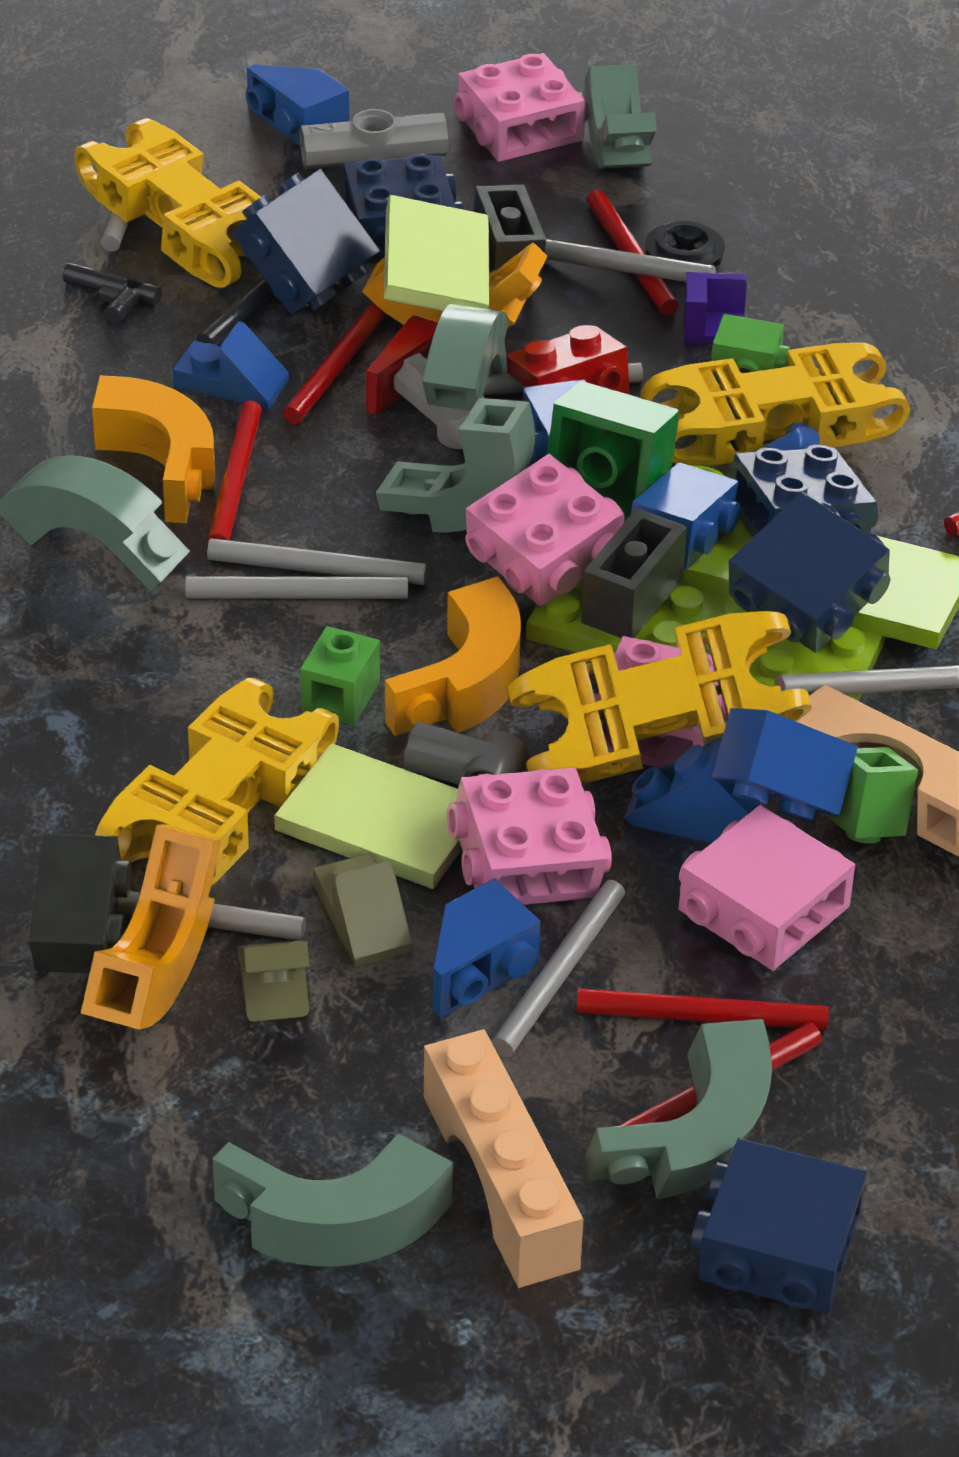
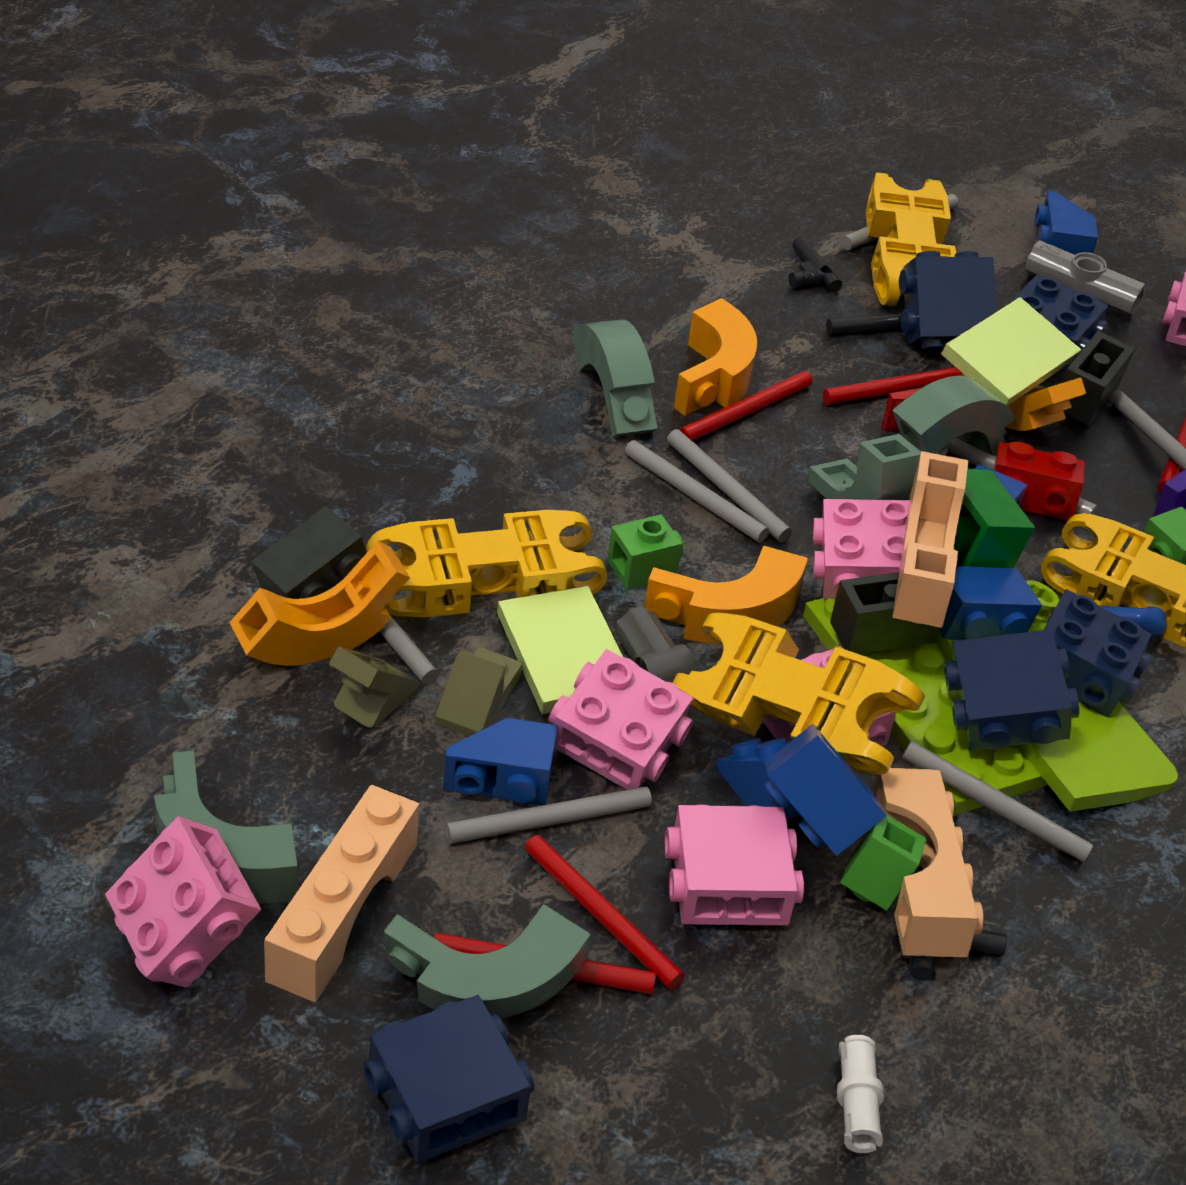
camera: 40 degrees right, 0 degrees up
(235, 371) = (823, 350): blue slope -> none
(405, 1270) = (182, 903): none -> bright pink brick
(593, 441) = (929, 540): none -> light nougat arch

